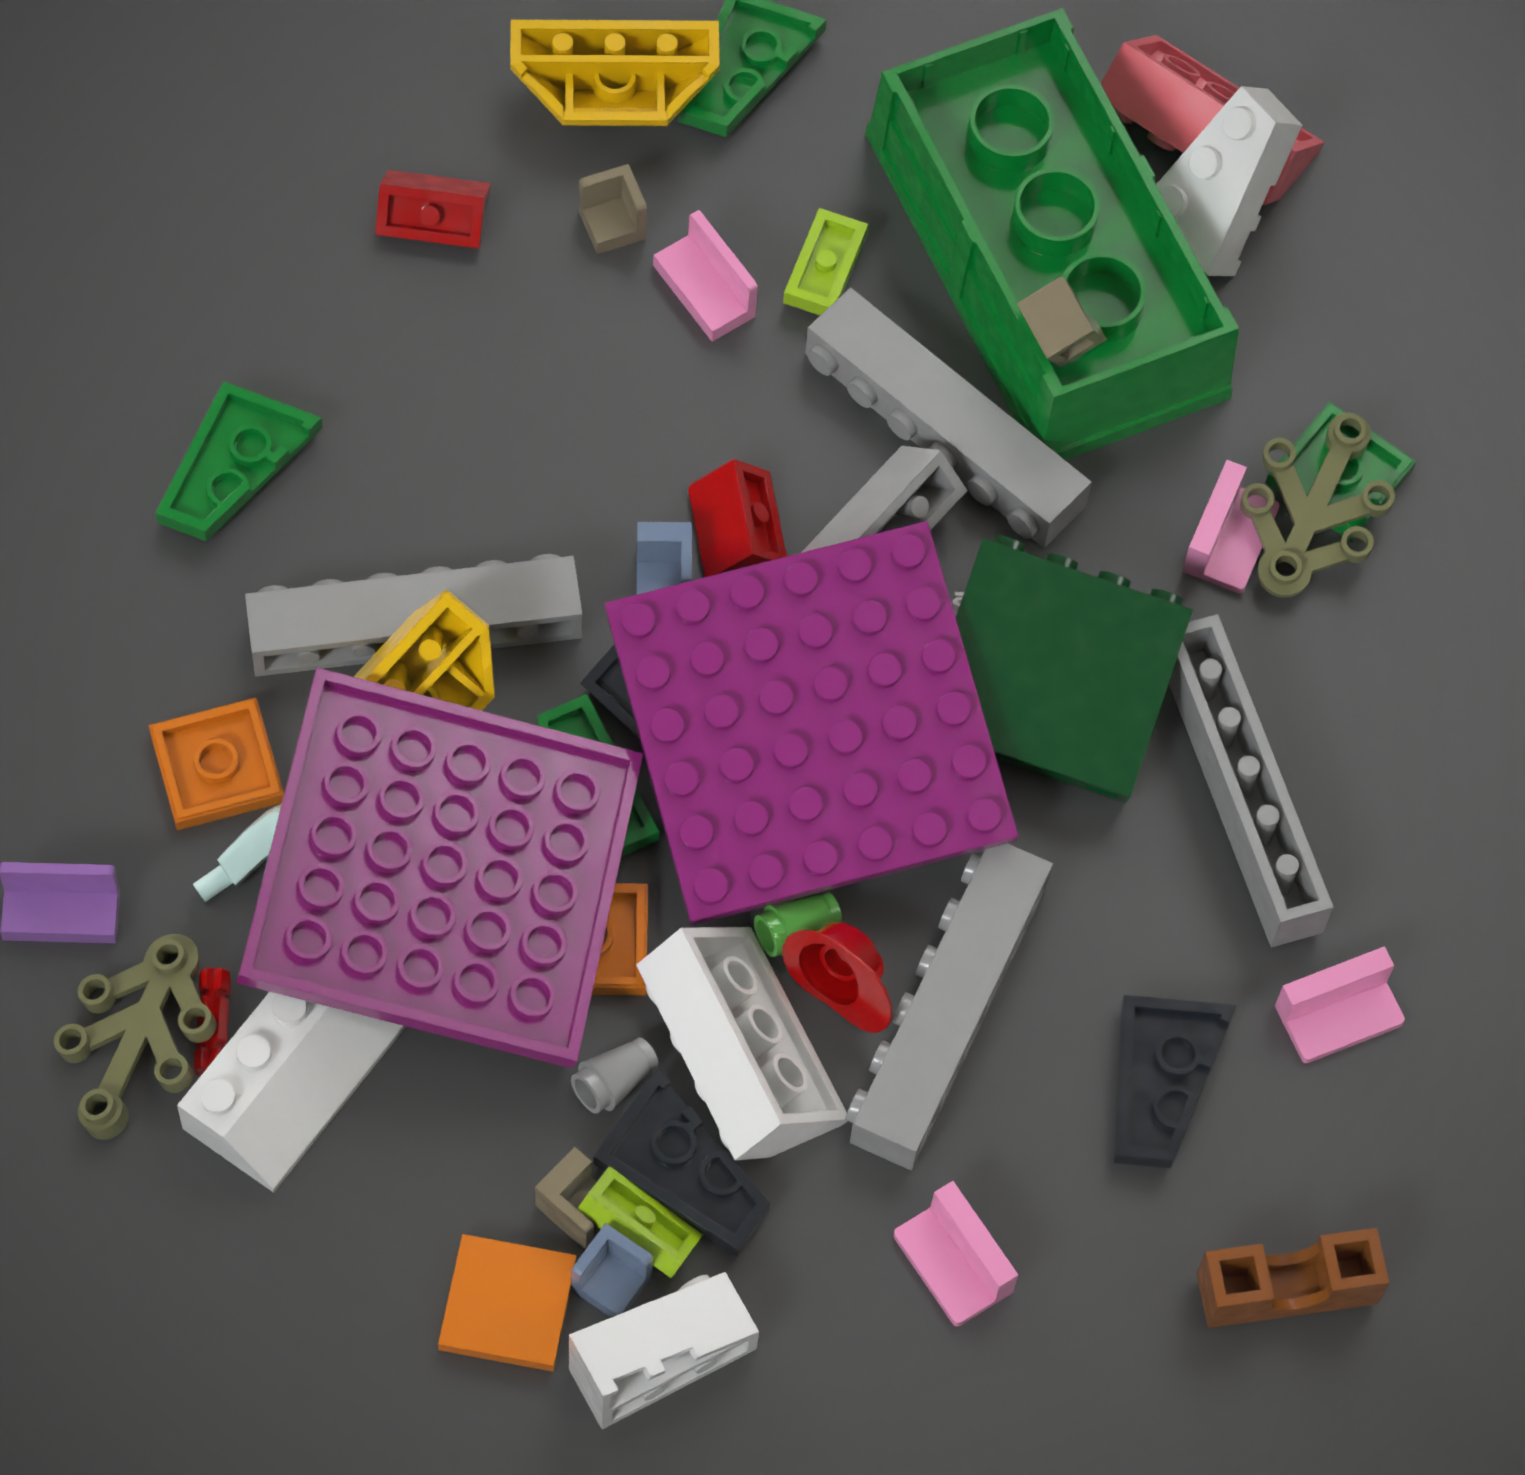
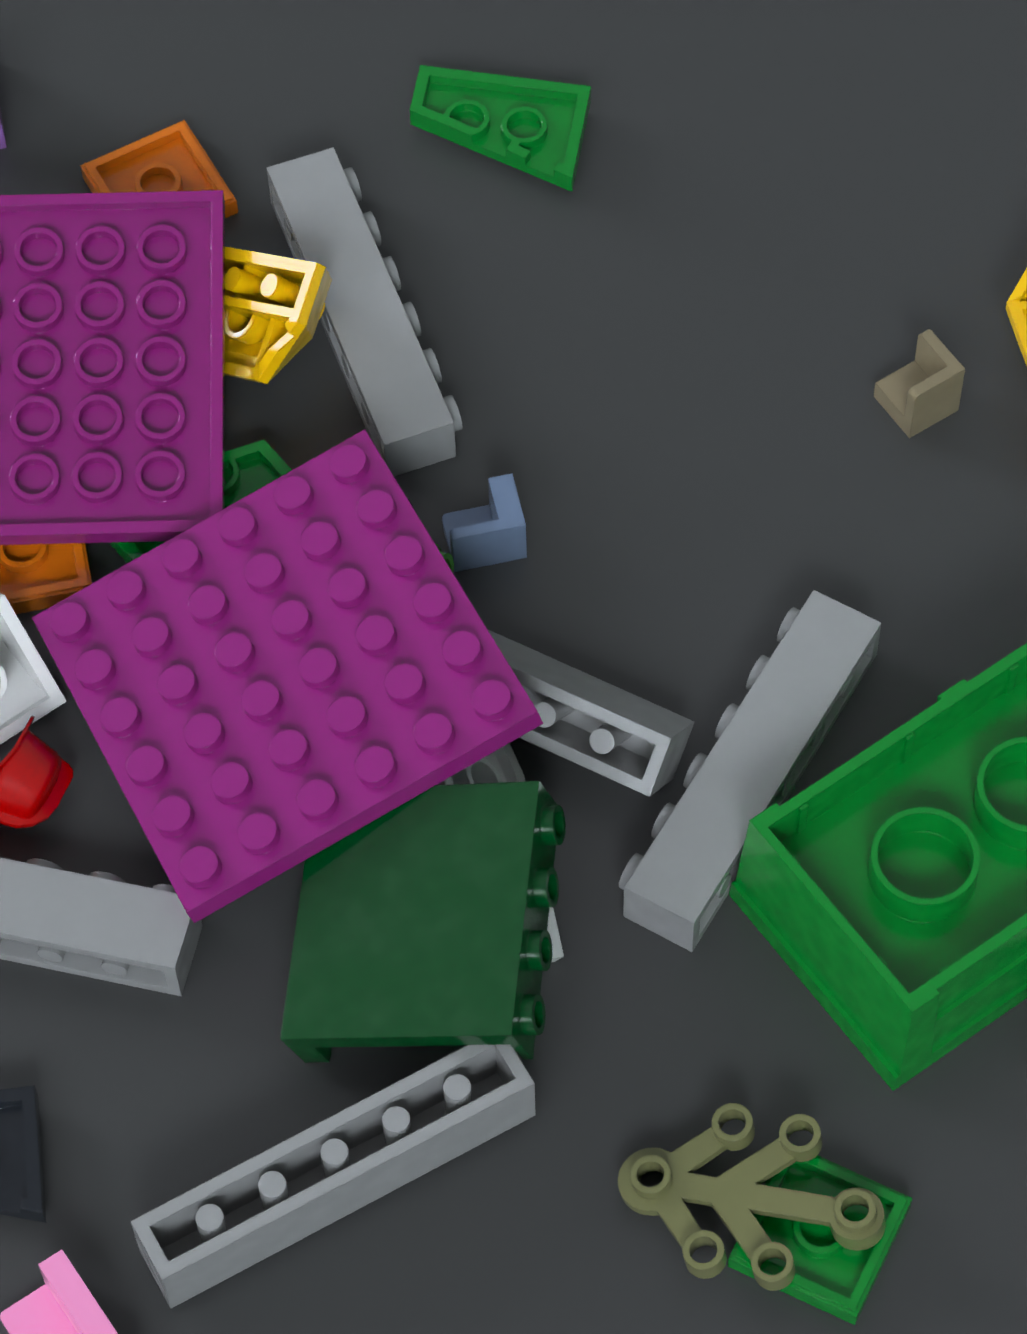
camera: 85 degrees right, 5 degrees down
(431, 208) = (871, 223): red panel -> none
(708, 279) = (863, 498): bright pink panel -> none
(736, 518) = (562, 591): red panel -> none
(787, 917) = (67, 732): bright green cone -> none
(825, 262) = (928, 608): lime plate -> none
(1060, 322) = (838, 797): dark tan panel -> none
(1225, 539) = (677, 1096): bright pink panel -> none

